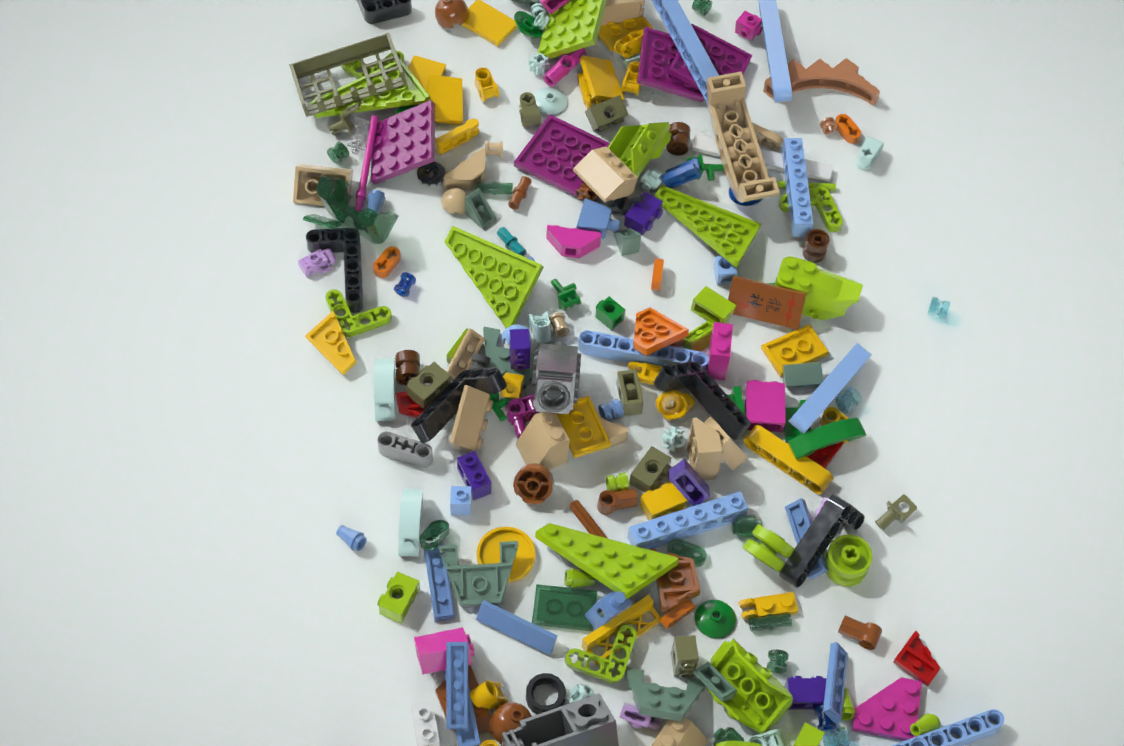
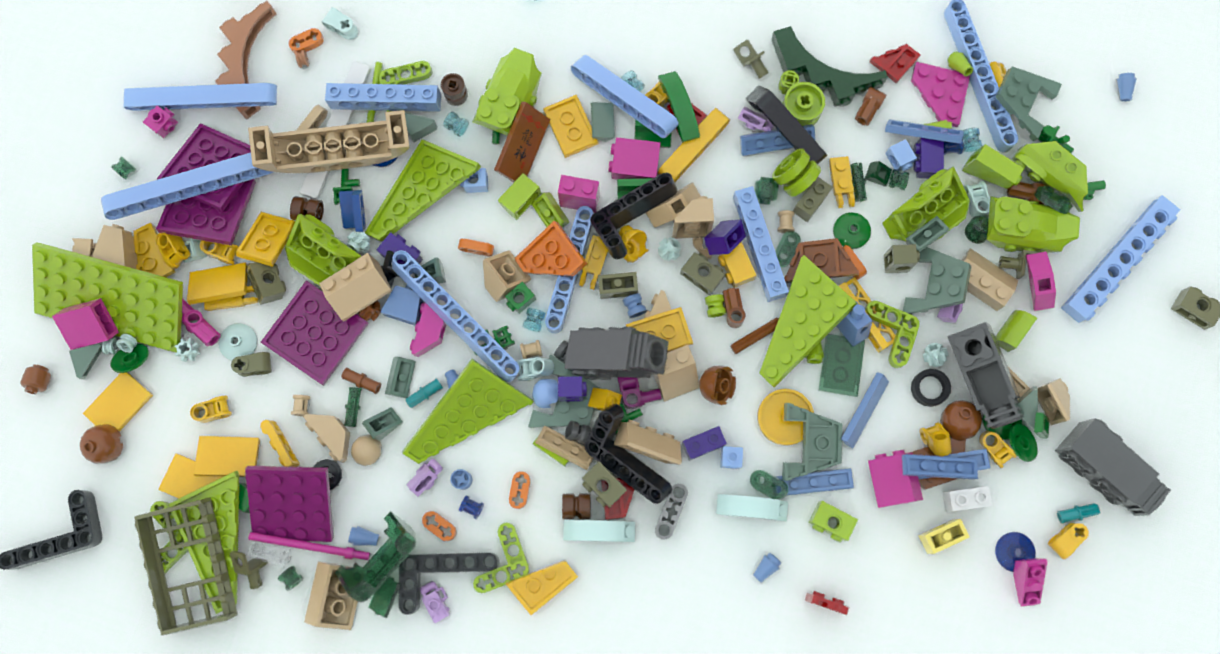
camera: 80 degrees left, 20 degrees up
(315, 589) = (819, 599): none -> red wing
(385, 701) = (944, 536): none -> light yellow brick
(422, 323) = (515, 488): none -> orange beam
(430, 246) = (424, 477): none -> lavender piece
(430, 274) = (461, 476): none -> medium blue wheel
(525, 224) = (400, 377): none -> sand green slope
(579, 259) = (451, 307): none -> light blue beam
(588, 324) = (534, 319): none -> clear light blue wheel
(633, 295) = (502, 275): none -> tan slope
(644, 107) = (265, 239): none -> yellow tile
(716, 548) = (786, 221): none -> tan bush
(743, 572) = (812, 199): none -> olive brick
(772, 218) = (419, 126): none -> sand green slope
(781, 250) = (455, 123): none -> clear light blue wheel
(784, 642) = (878, 173): none -> dark green slope
(805, 663) = (901, 156): none -> light blue brick
(878, 548) = (785, 83): none -> lime wheel
(898, 557) = (840, 84): none -> dark green arch

